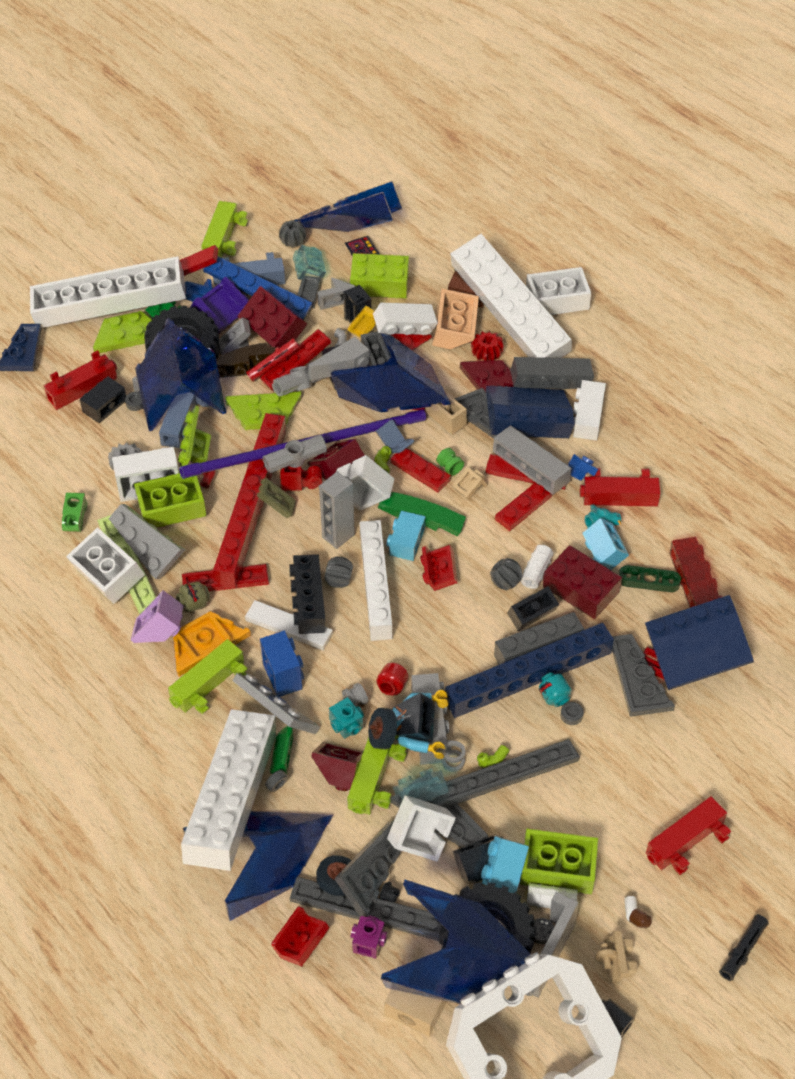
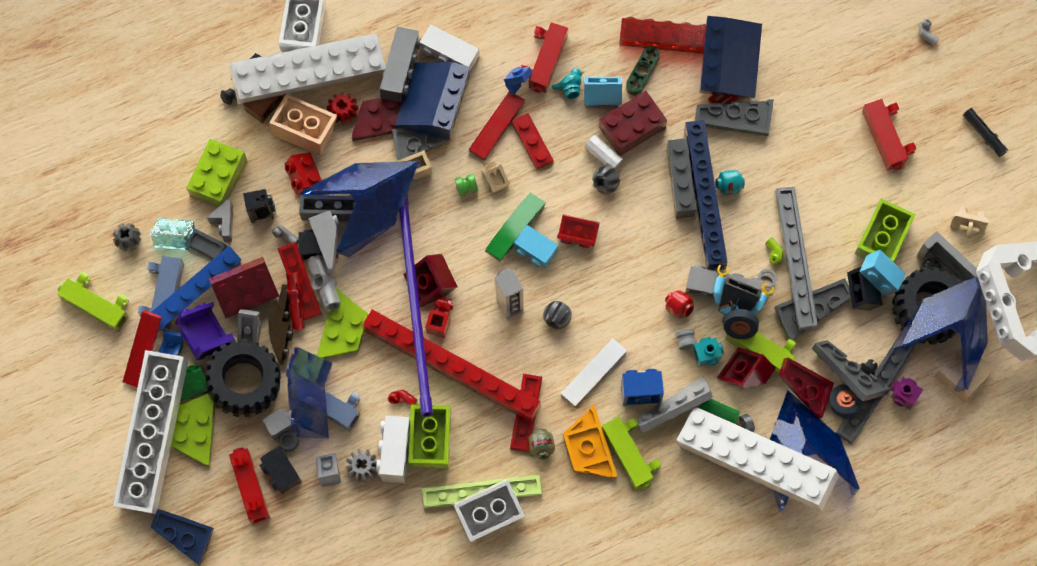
camera: 70 degrees left, 20 degrees up
(74, 512) = (411, 526): bright green leg -> none
(112, 434) = (328, 469): none -> light grey slope
(151, 546) = (479, 466): light grey wing -> none
(158, 620) = (562, 479): lavender slope -> none
(195, 443) = (375, 397): lime bracket -> none
(277, 499) = (456, 349): olive tile -> none
(294, 453) = (429, 300): light grey piece -> none
(299, 937) = (890, 443): red bracket -> none
(308, 594) = (573, 346): black brick -> none
(340, 825) = (807, 385): none -> dark red wing
(356, 211) = (114, 171): clear blue windscreen -> none
(361, 246) = (170, 178): piece -> none
(363, 322) = (280, 205): yellow tile -> none
(369, 482) = (477, 263): white piece -> none
(375, 580) = (575, 286): white brick -> none
(382, 458) = (439, 242): lime arm -> none
(392, 437) = (424, 224): sand blue bracket -> none
(405, 318) = (300, 167): white brick -> none
(415, 828) = (834, 329): white piece -> none
(421, 469) = (462, 212): red plate -> none
(424, 788) = (795, 313): clear light blue bracket -> none
(531, 459) = (494, 116): light grey brick -> none
(533, 608) = (649, 171): black brick -> none
(541, 895) = (909, 250): white axle -> none
(572, 713) = (752, 178): dark grey tile -> none
(619, 1016) = (1017, 236): black brick -> none
(635, 915) = (937, 198): reddish brown arm -> none

